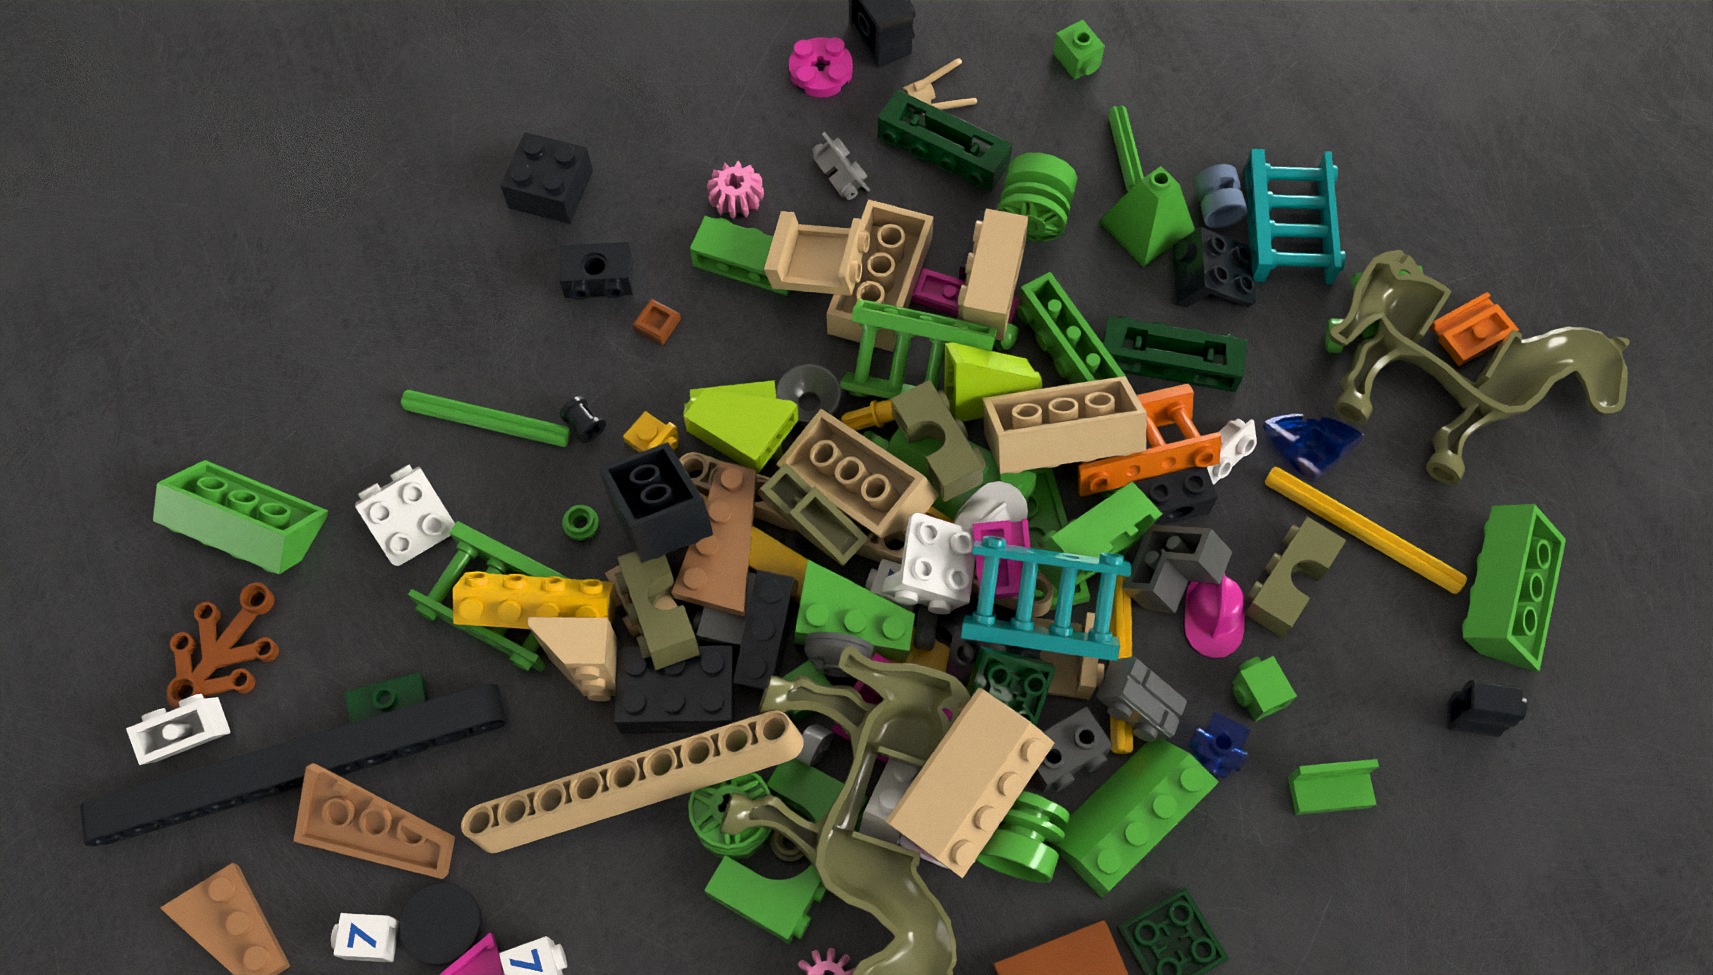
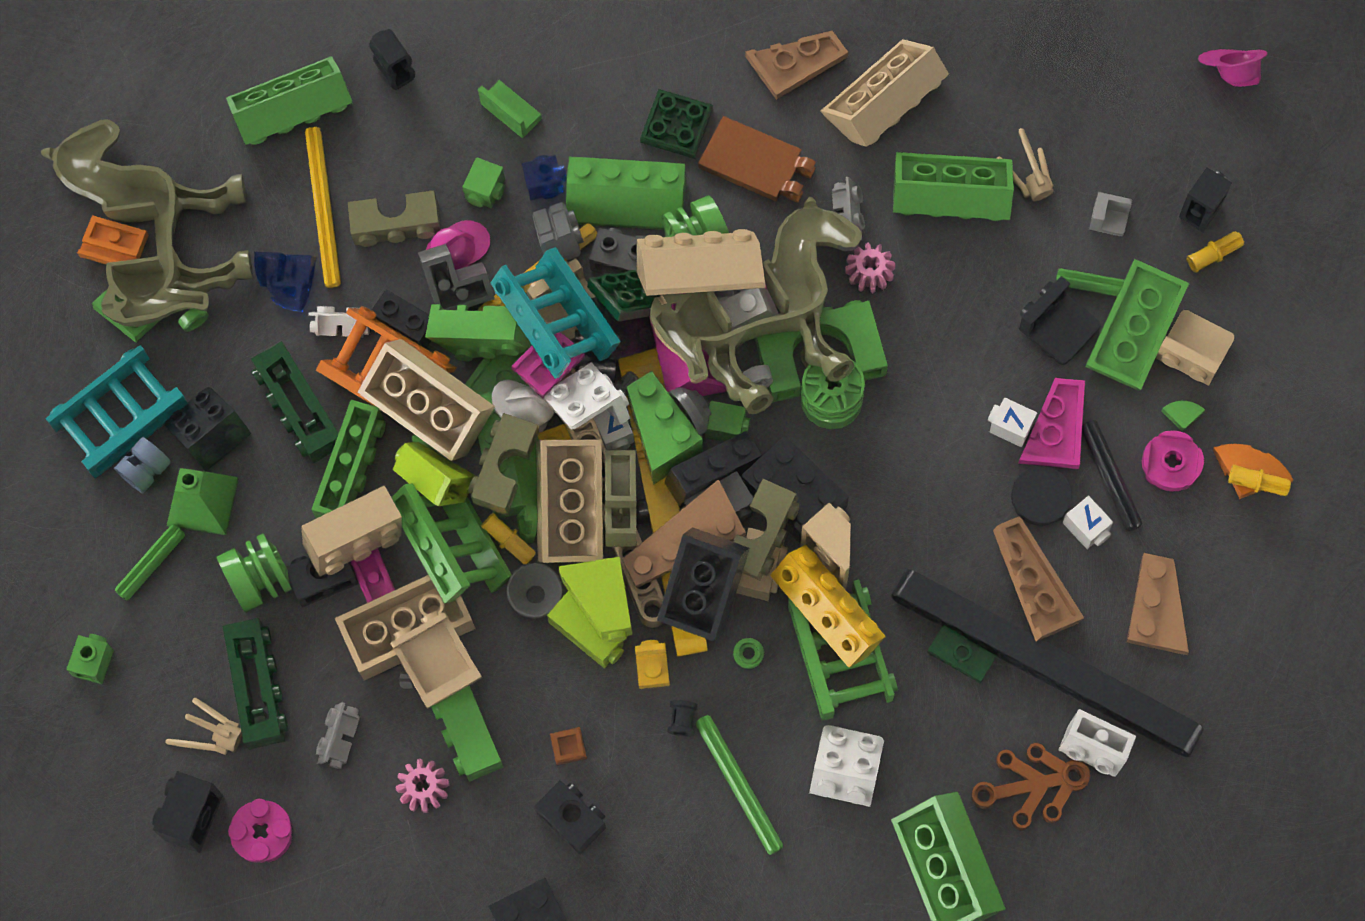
camera: 130 degrees left, 5 degrees up
(633, 782) = (886, 454): tan beam -> none

